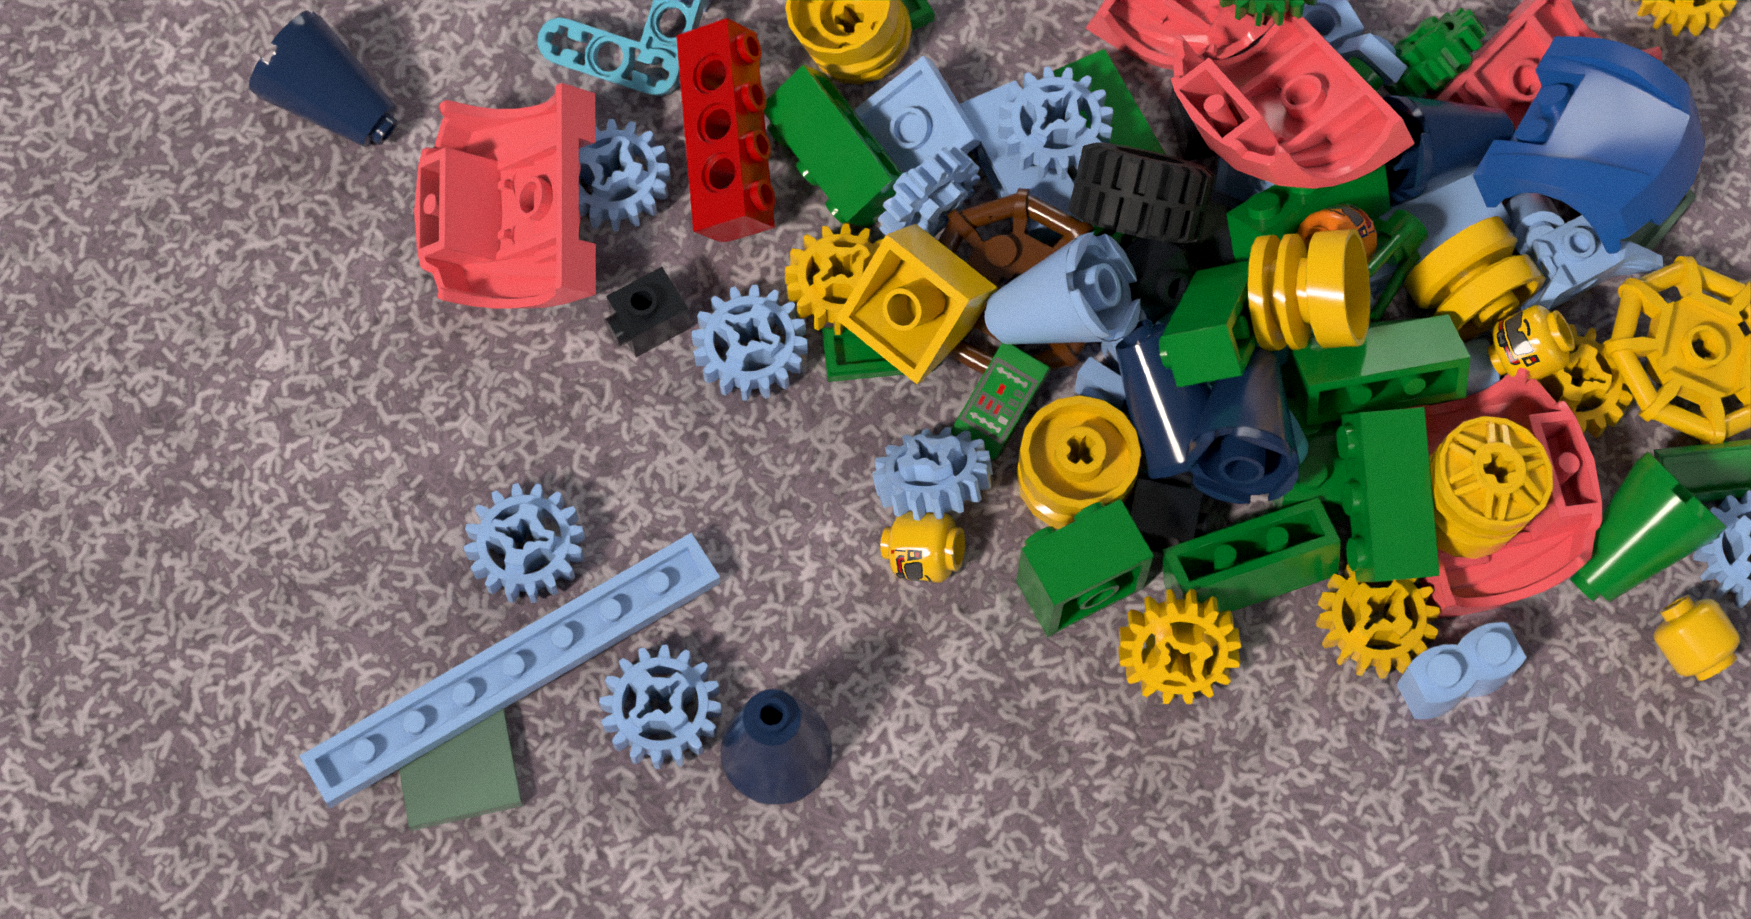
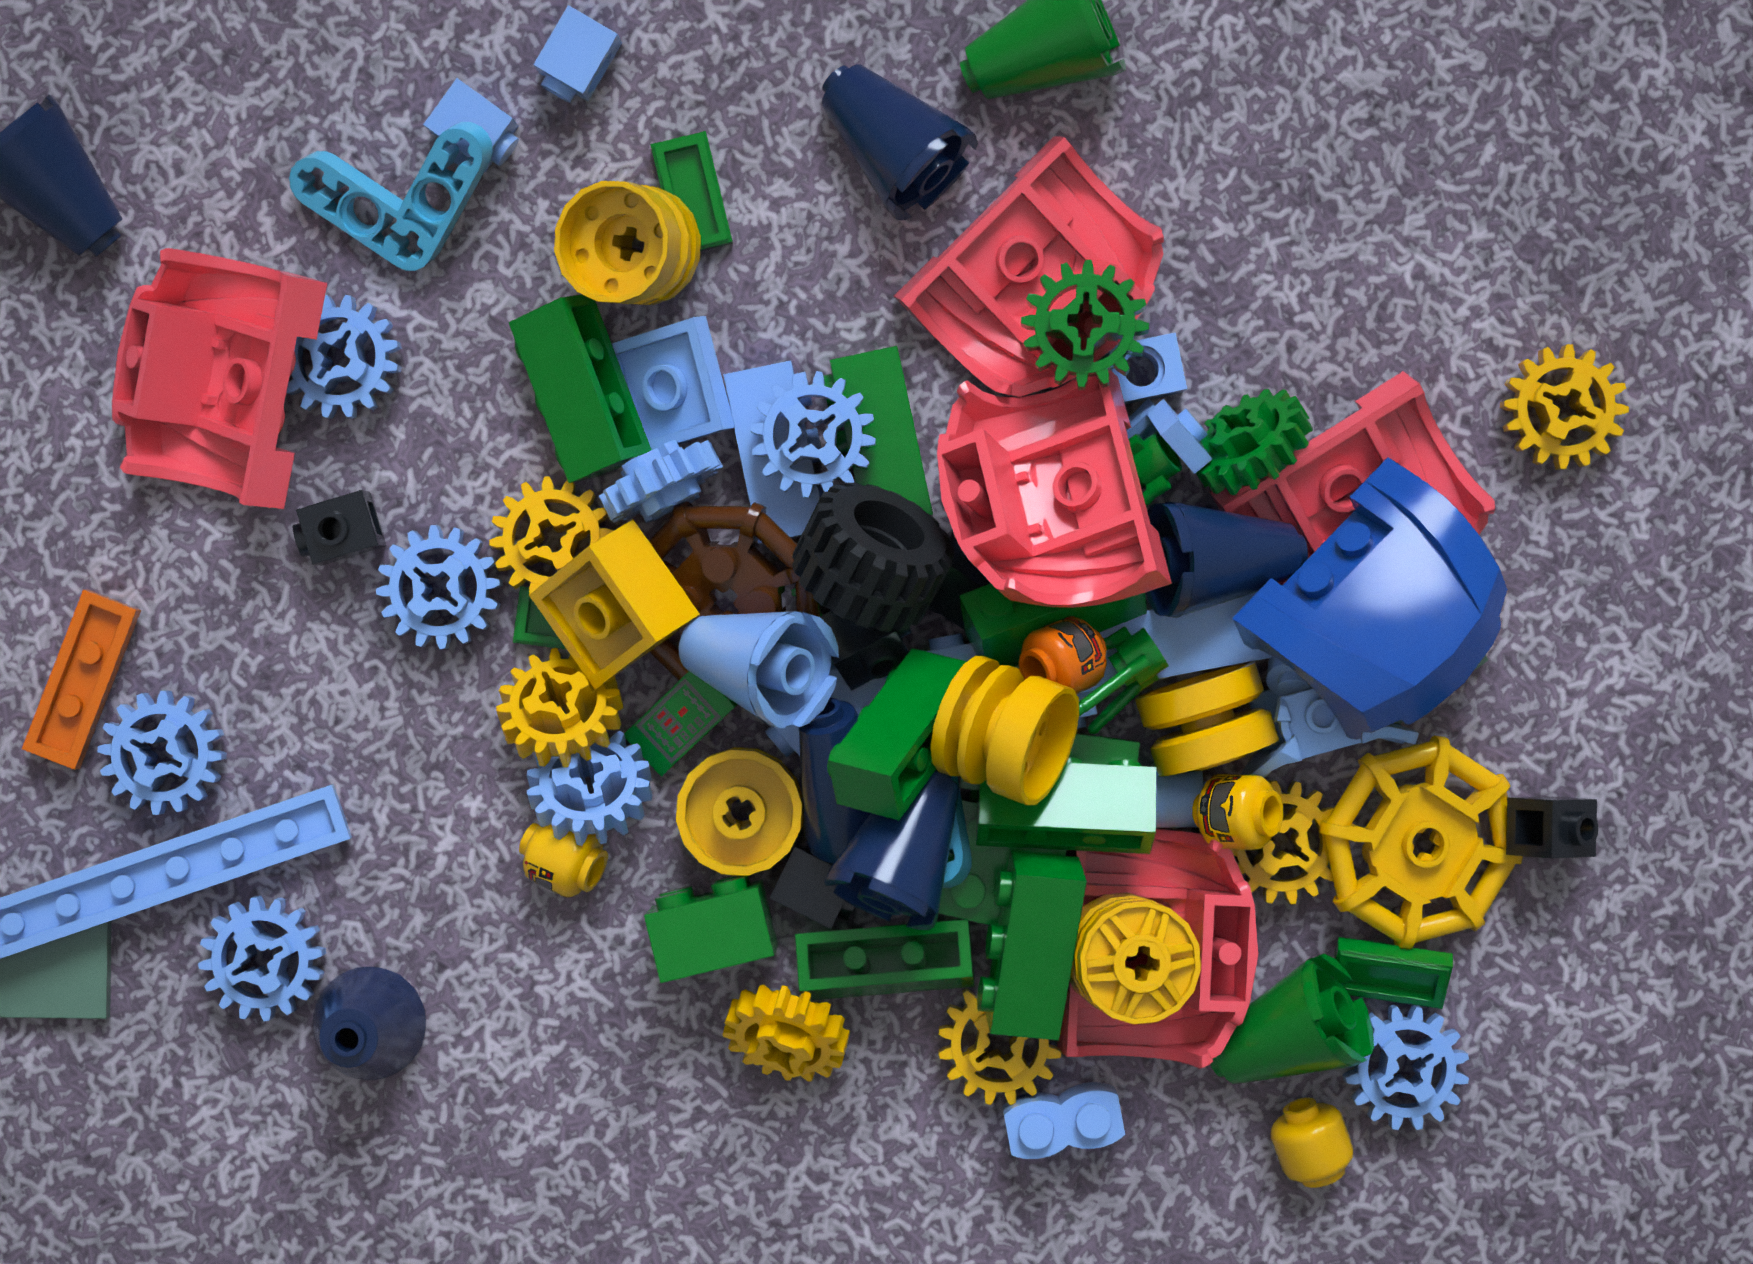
camera: 10 degrees right, 20 degrees up
(434, 499) = (81, 679): none -> orange plate
(725, 131) = (464, 345): red brick -> none
(887, 414) = (540, 726): none -> yellow gear

